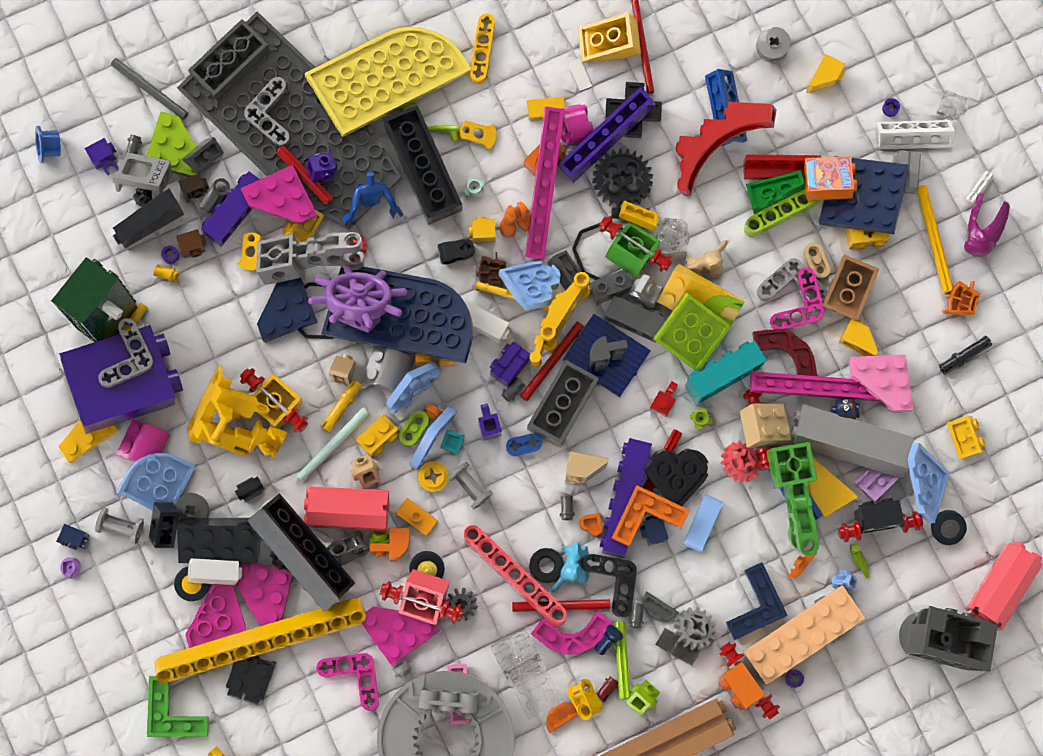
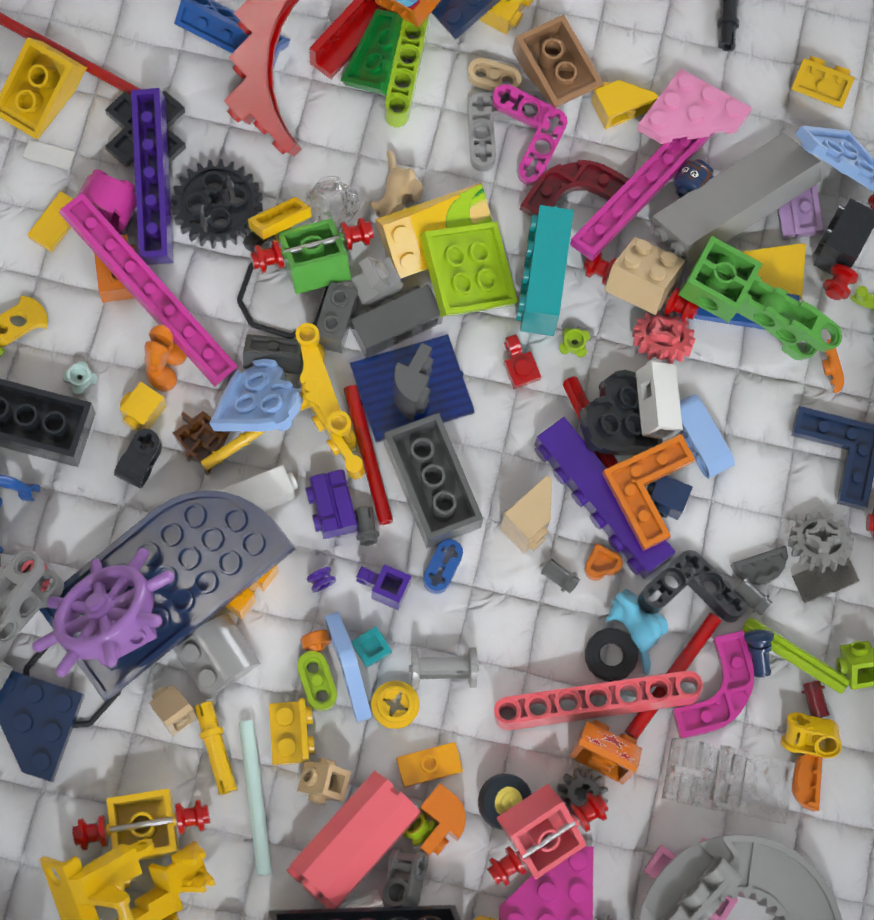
camera: 55 degrees left, 5 degrees down
(412, 385) = (266, 637): light blue plate -> none
(467, 389) = (321, 579): none -> dark purple bush
(492, 598) = (606, 752): none -> orange slope
(702, 485) = (659, 399): none -> white brick

